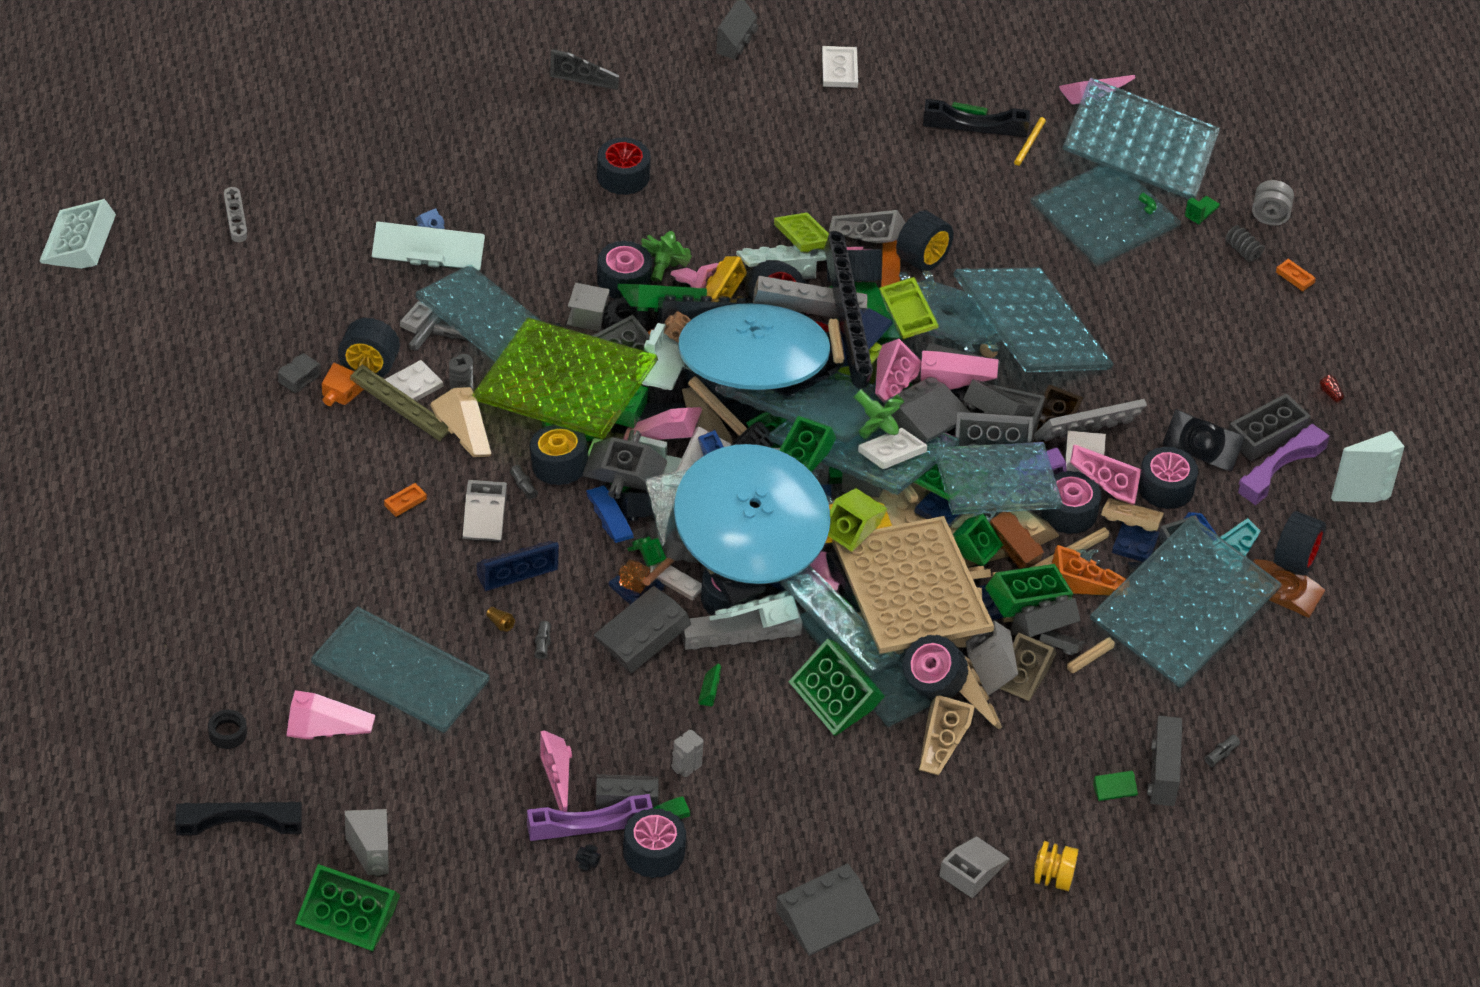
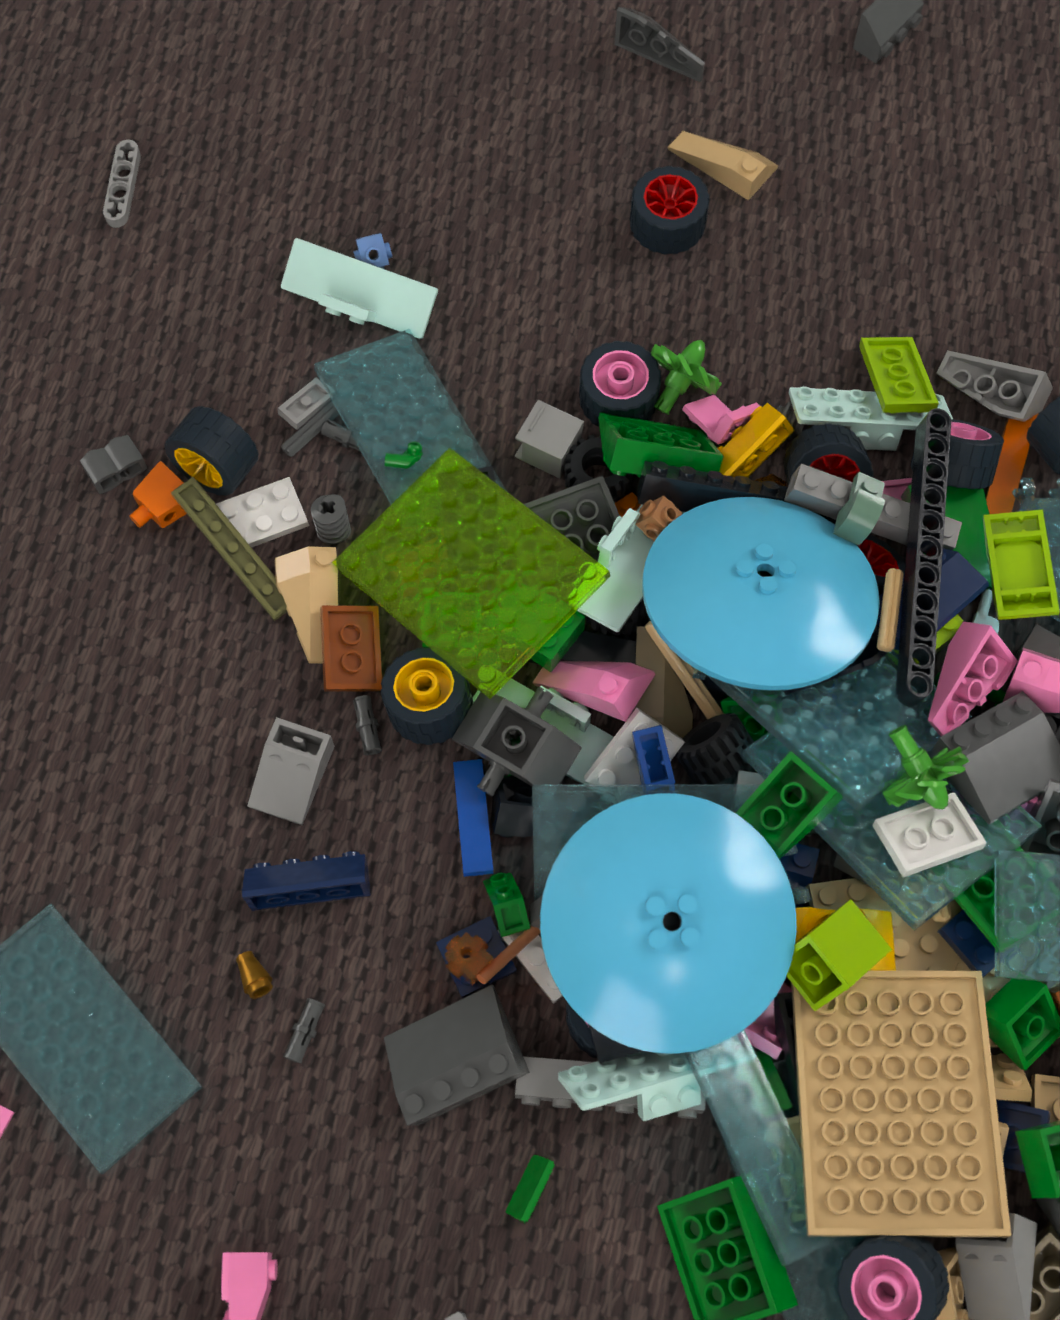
camera: 20 degrees right, 20 degrees up
(405, 499) = (187, 719): orange plate -> none
(499, 331) = (406, 459): none -> green arm
(499, 441) = (351, 648): none -> dark orange plate
(655, 135) = (730, 165): none -> tan wedge
(803, 293) = (862, 509): none -> sand green brick
(839, 66) = (1021, 103): white plate -> none

